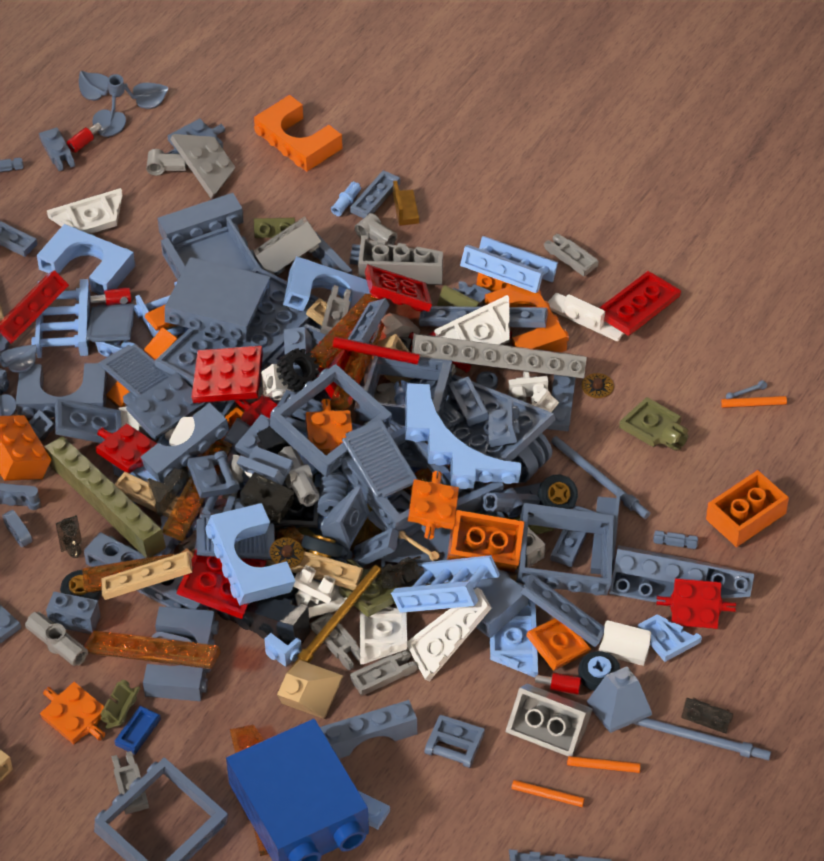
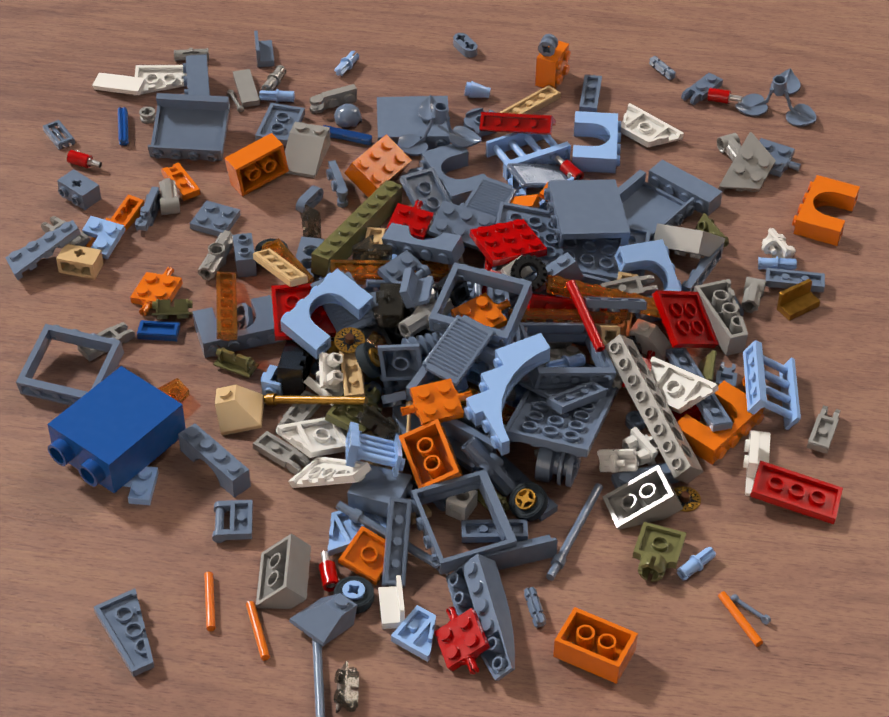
camera: 65 degrees right, 5 degrees down
(232, 673) = (235, 363): none -> olive hinge
(324, 188) = (776, 245): none -> white hips
(504, 425) = (555, 422): sand blue bracket -> none
(513, 630) = (358, 517): none -> sand blue bar
(592, 412) = (643, 500): none -> light grey slope
(680, 405) = (695, 563): none -> light blue axle

